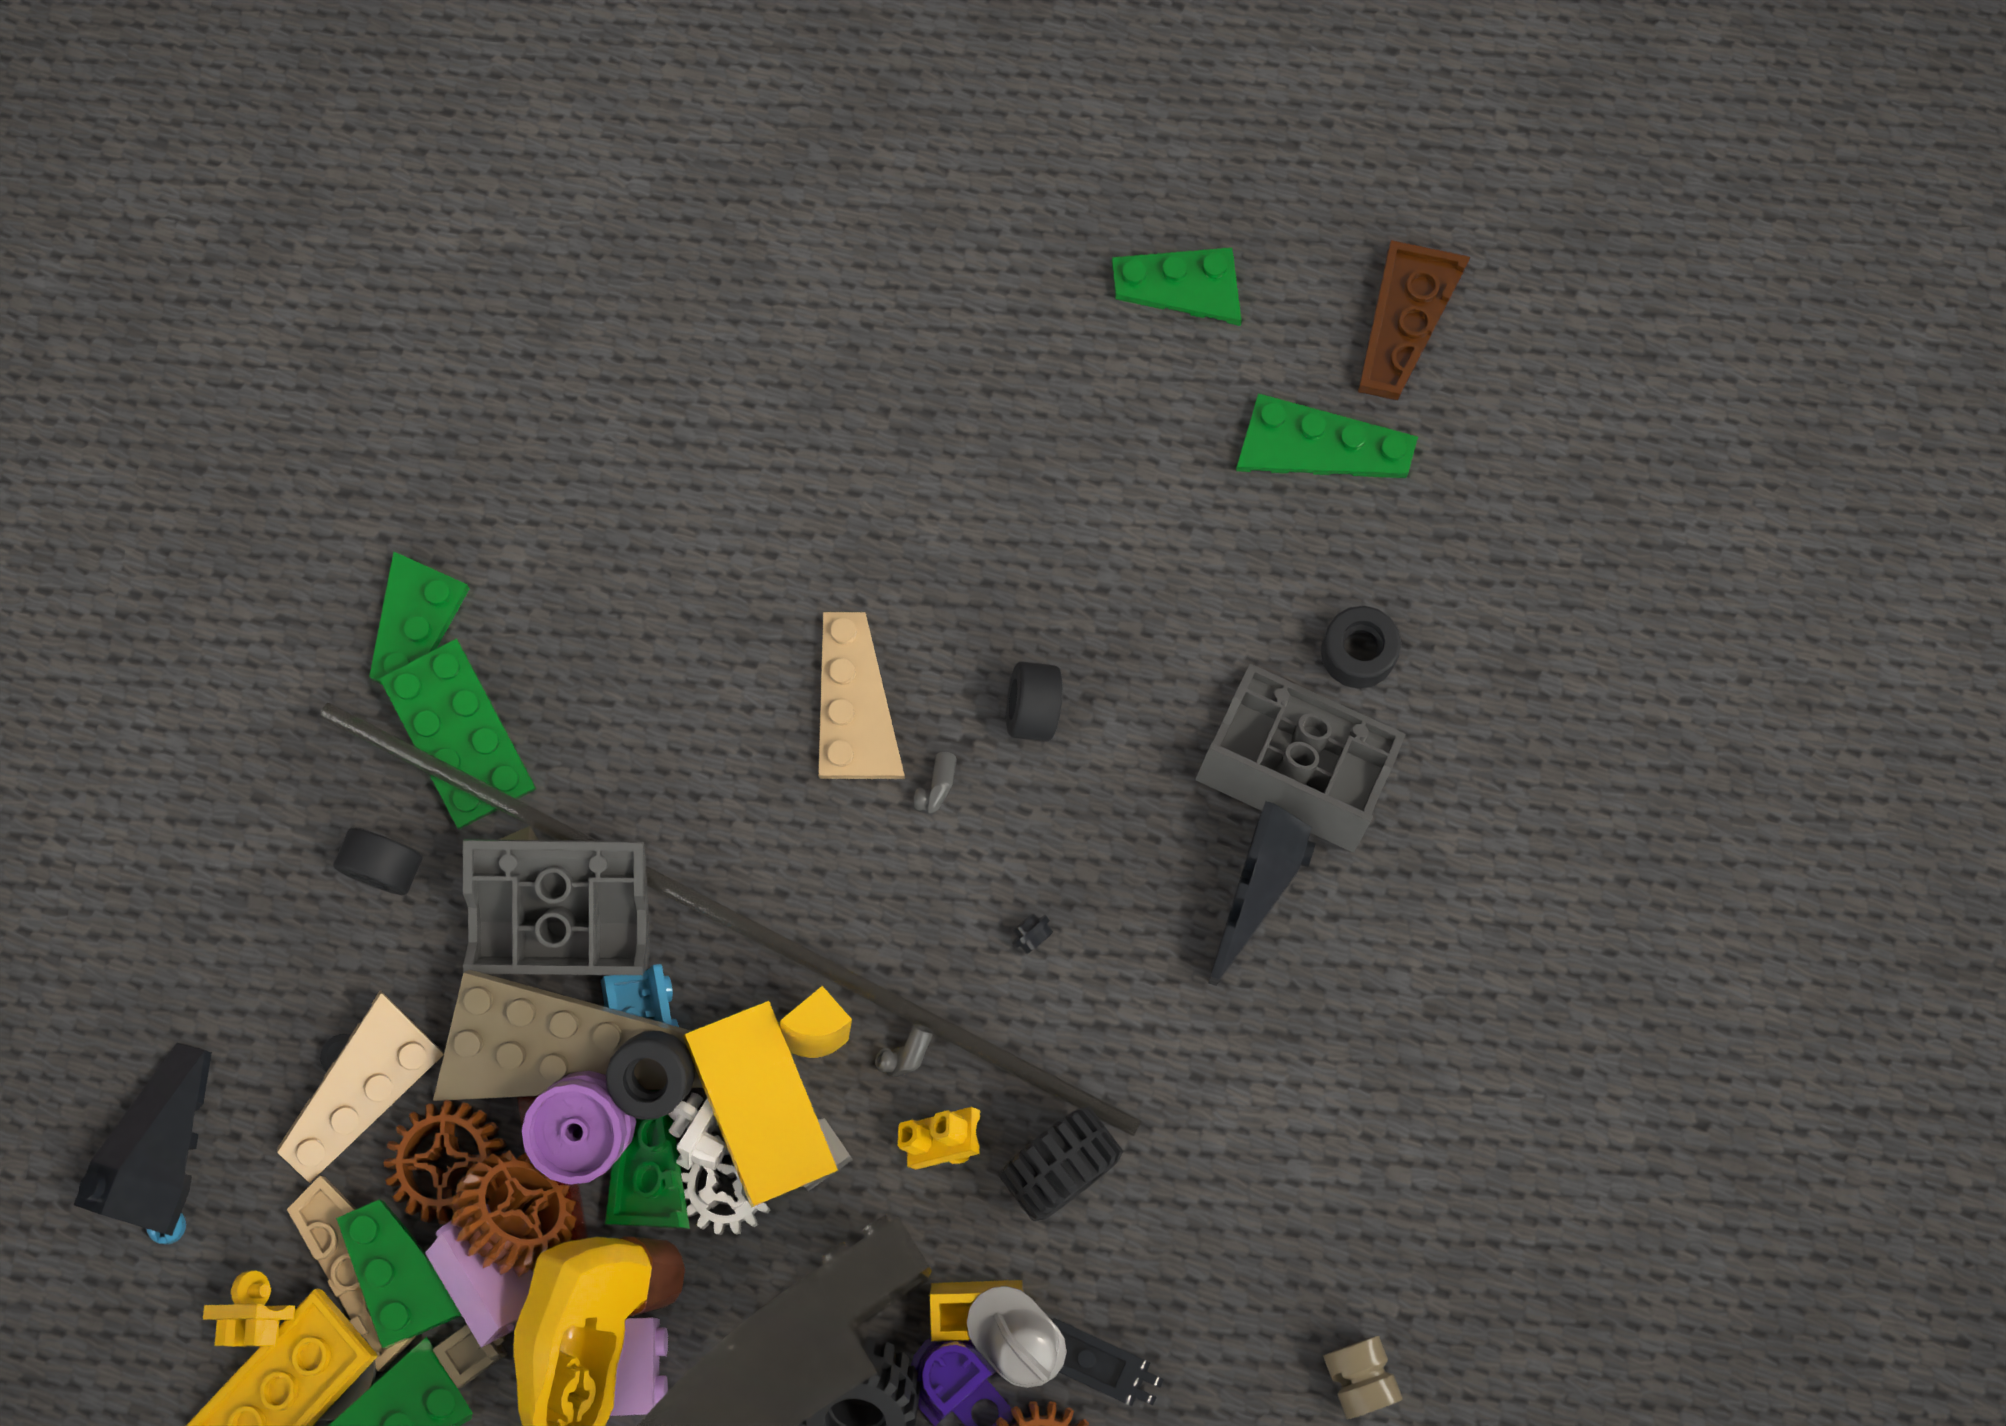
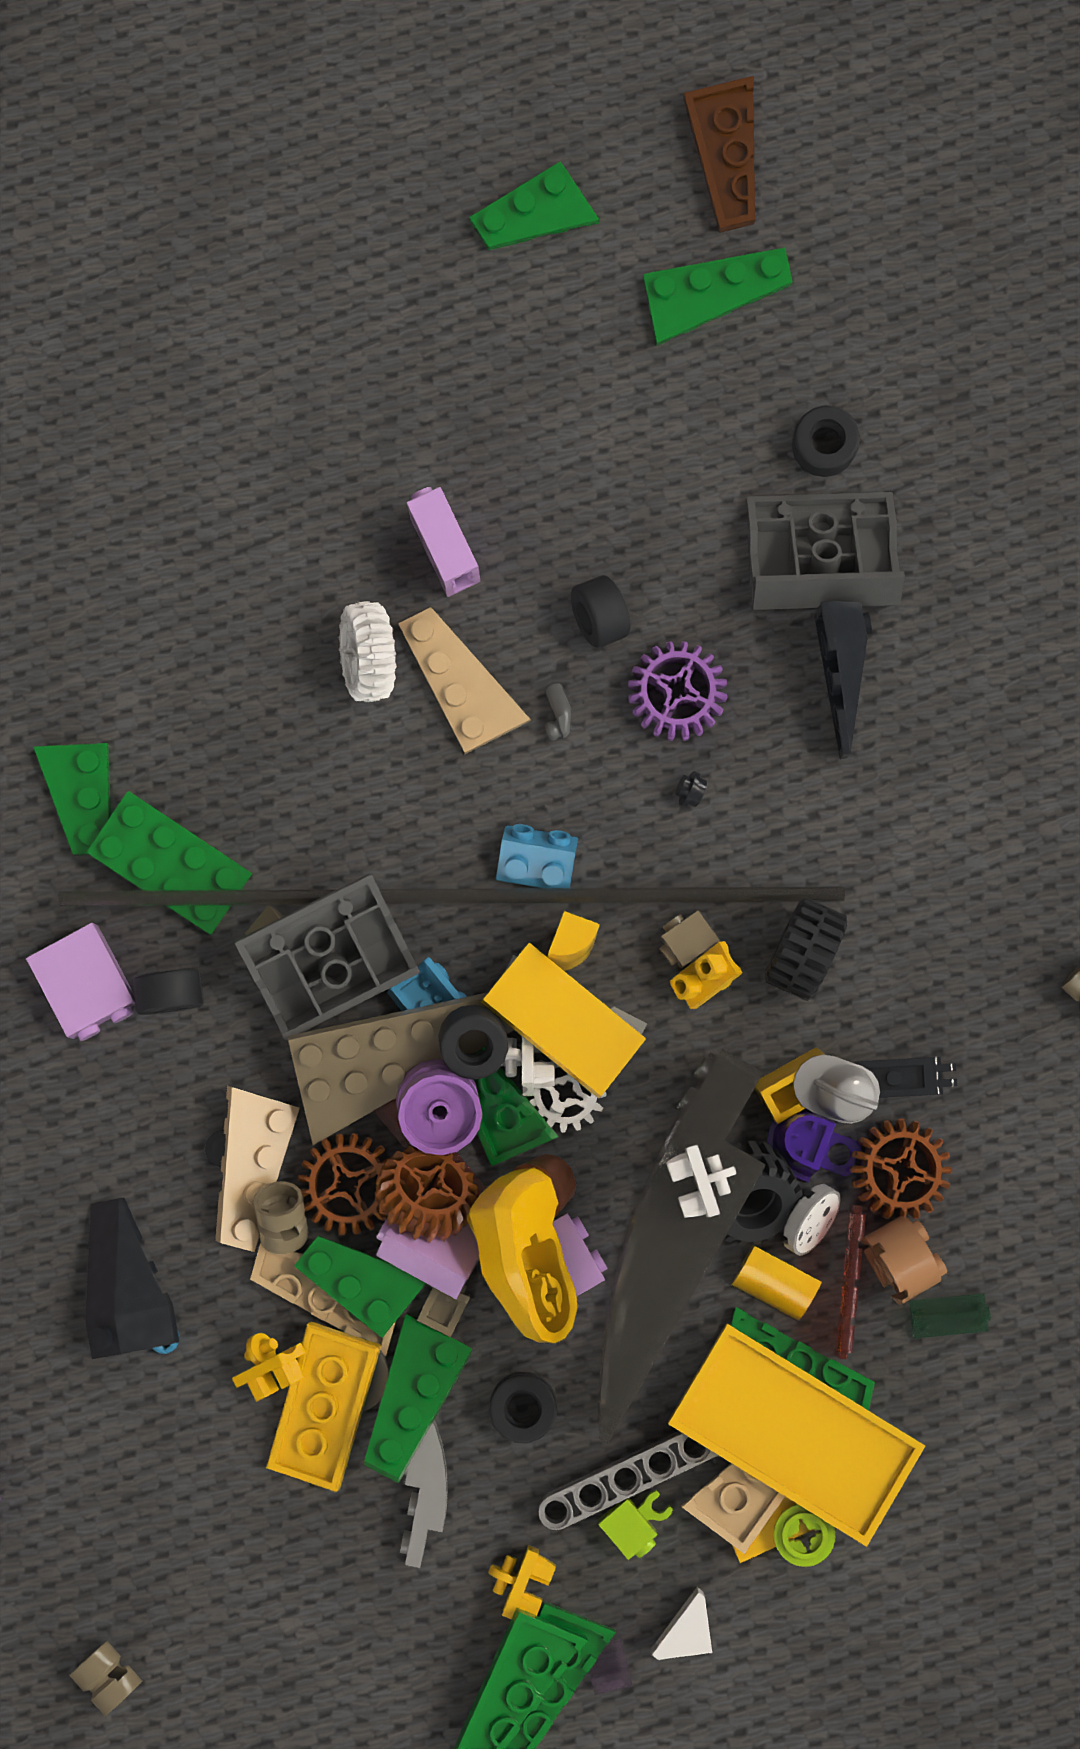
camera: 25 degrees left, 10 degrees up
(301, 808) = (83, 982): none -> lavender brick
(353, 1159) = (281, 1217): none -> dark tan wheel
(772, 620) = (367, 651): none -> white gear
(784, 1373) = (703, 1200): none -> white hips
(833, 920) = (536, 857): none -> dark azure bracket
(907, 1057) = (647, 931): dark grey arm -> none
(910, 550) = (443, 540): none -> lavender brick
(942, 1087) = (687, 939): none -> dark tan brick
(1058, 834) = (662, 684): none -> medium lavender gear

